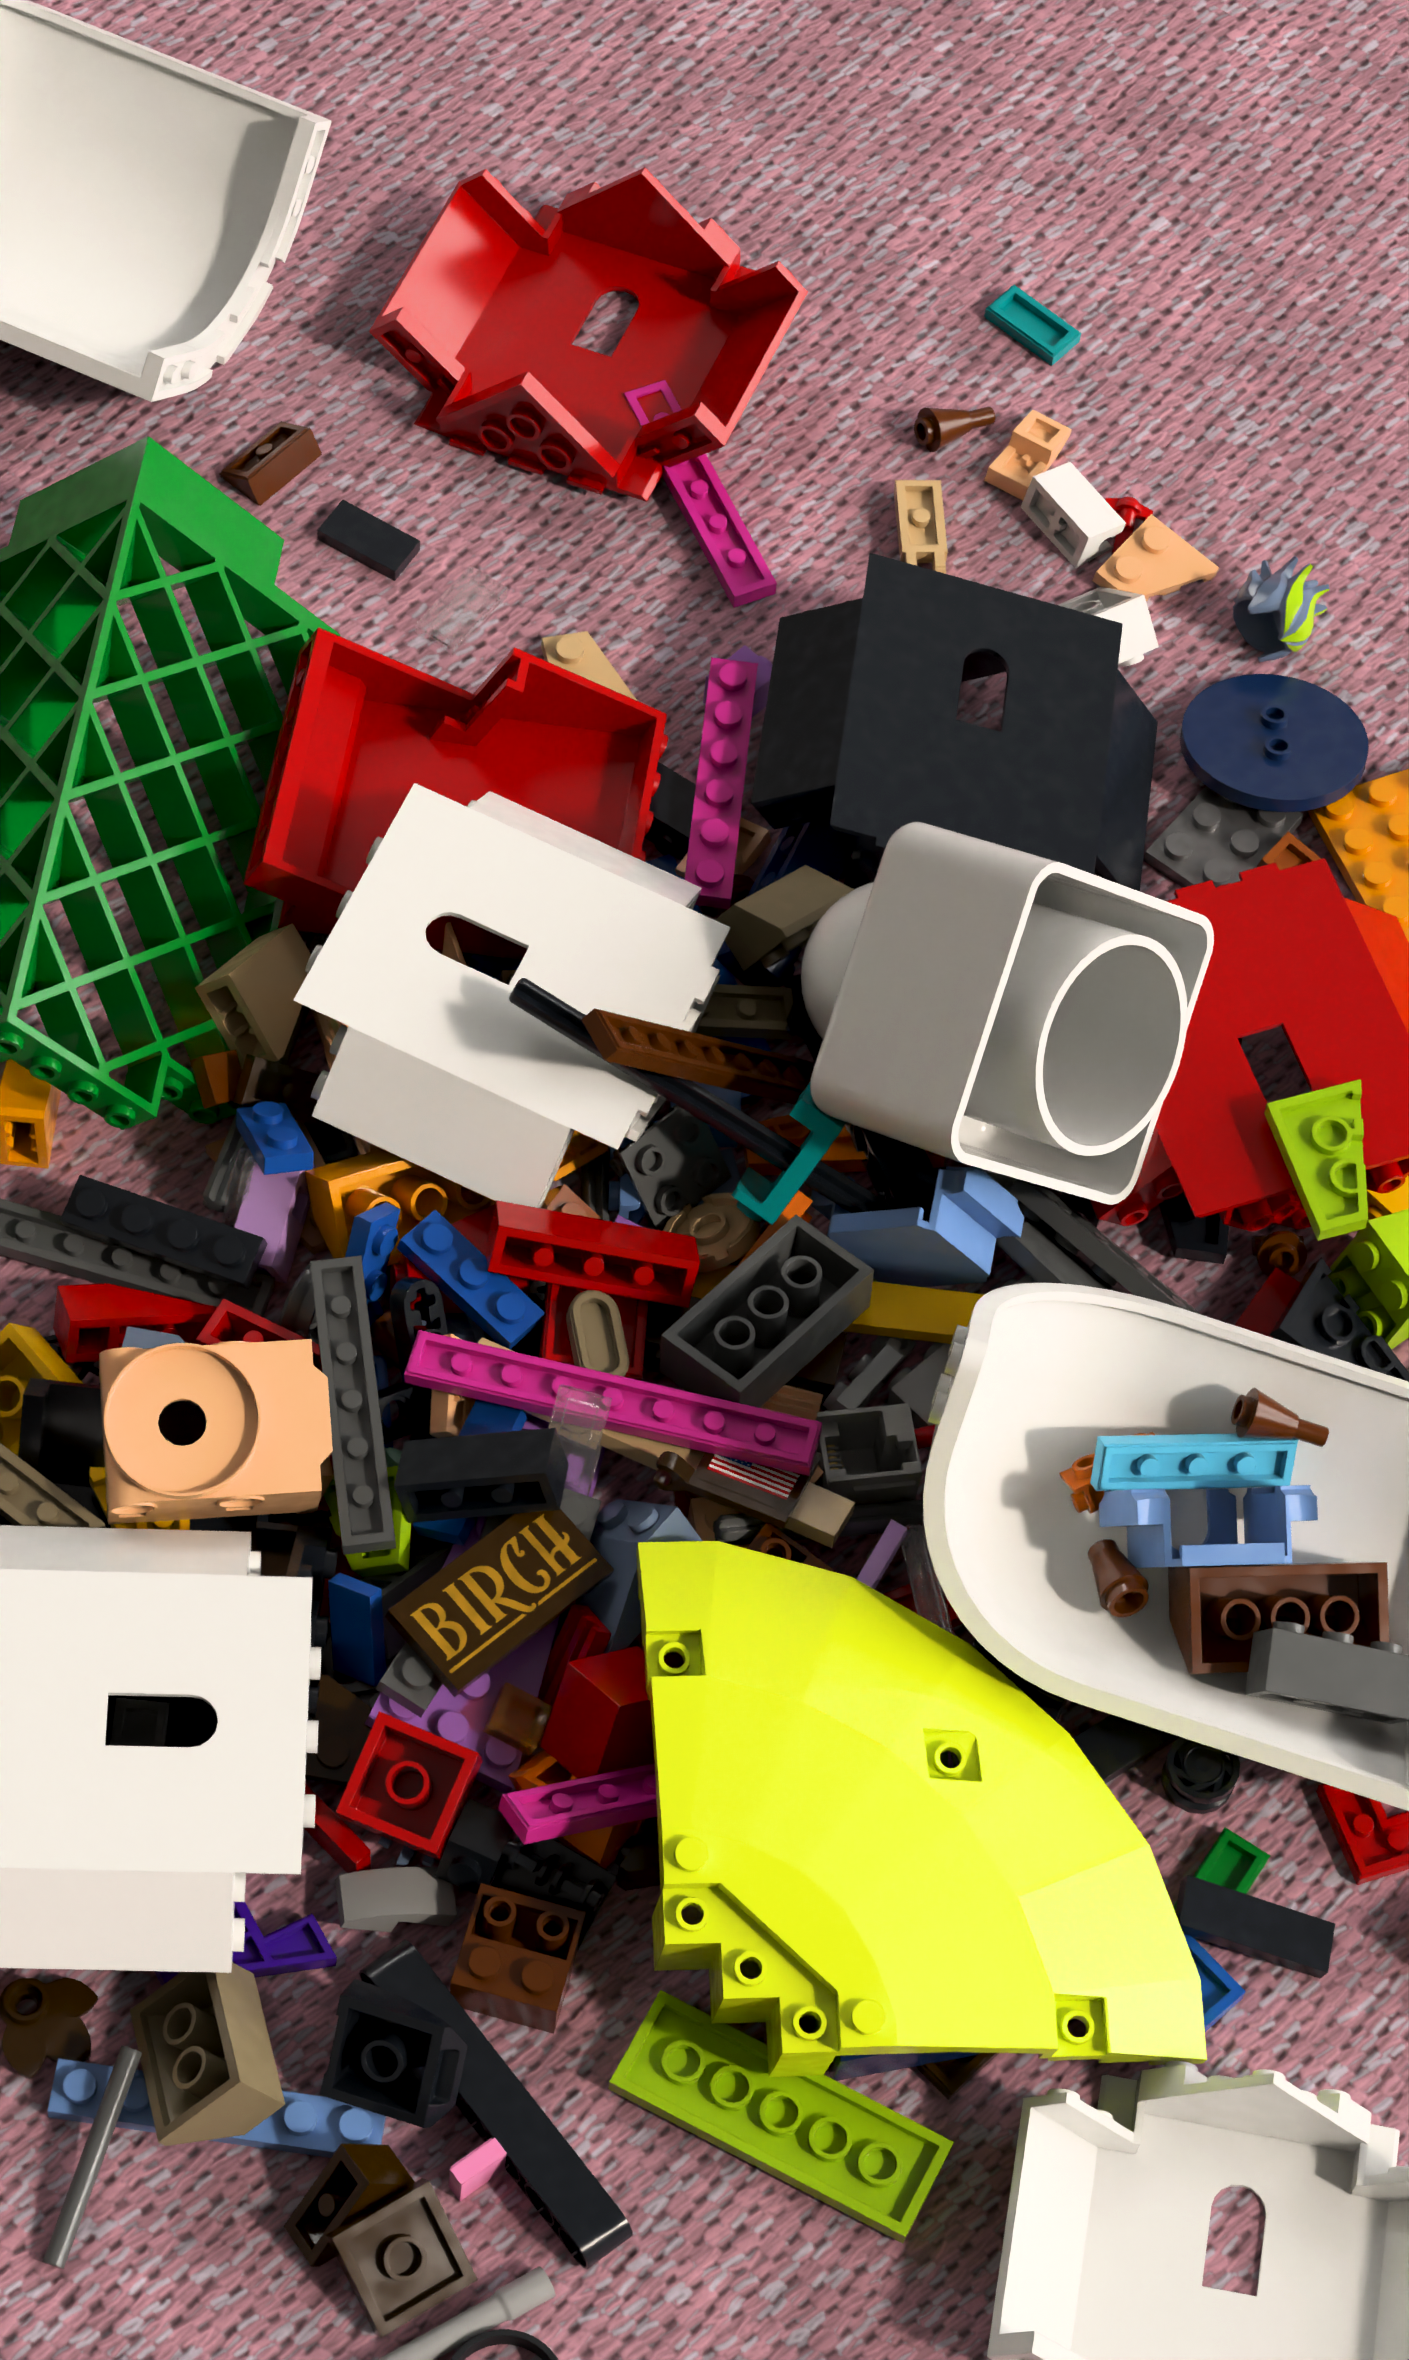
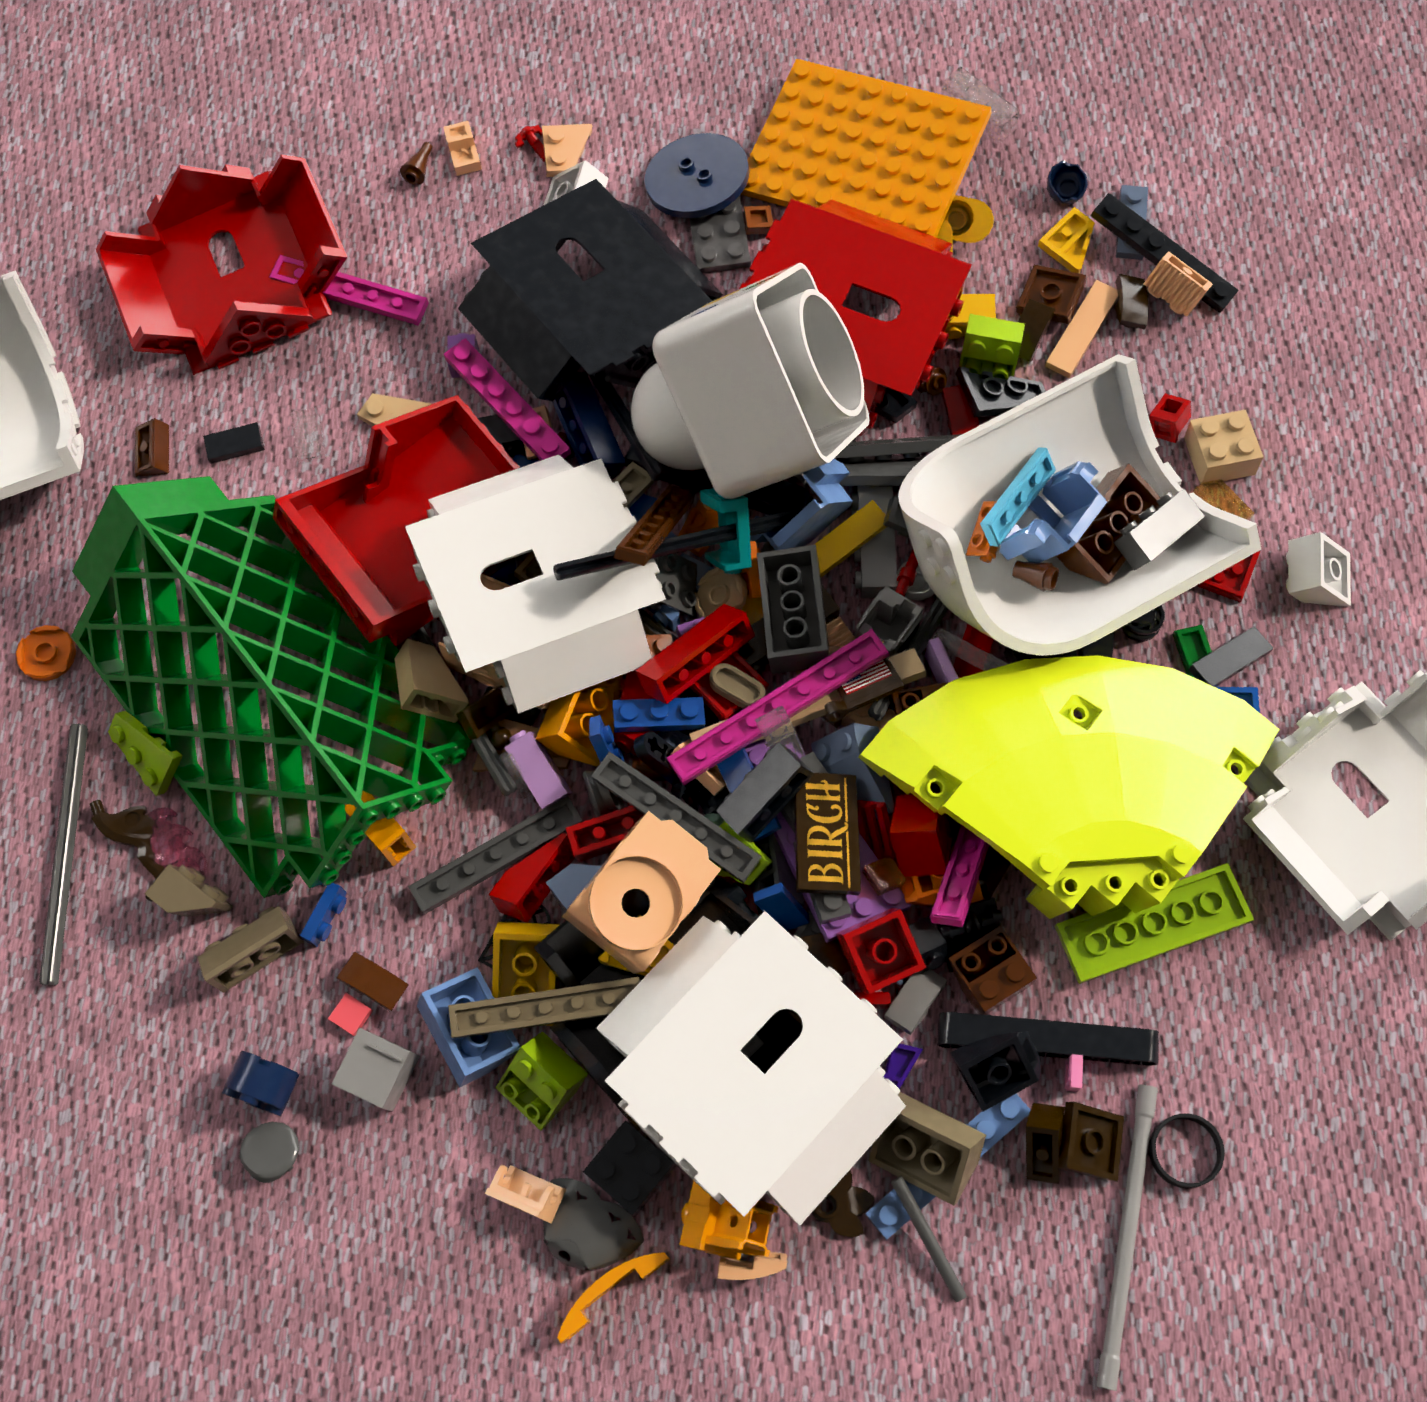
camera: 35 degrees left, 10 degrees up
(164, 1232) = (504, 825): black plate -> none
(217, 1077) = (452, 736): reddish brown tile -> none
(274, 1138) = (510, 738): blue plate -> none
(779, 916) = (606, 431): dark tan slope -> none
(870, 1373) = (847, 592): light grey hinge -> none
(921, 523) = (456, 218): tan hinge -> none
(1032, 325) = (400, 91): teal tile -> none
(1071, 513) = (509, 156): white hinge -> none
(1265, 1418) = (1028, 451): reddish brown cone -> none
(1277, 609) = (637, 119): sand blue hair -> none
(1323, 1153) = (932, 320): lime wing -> none

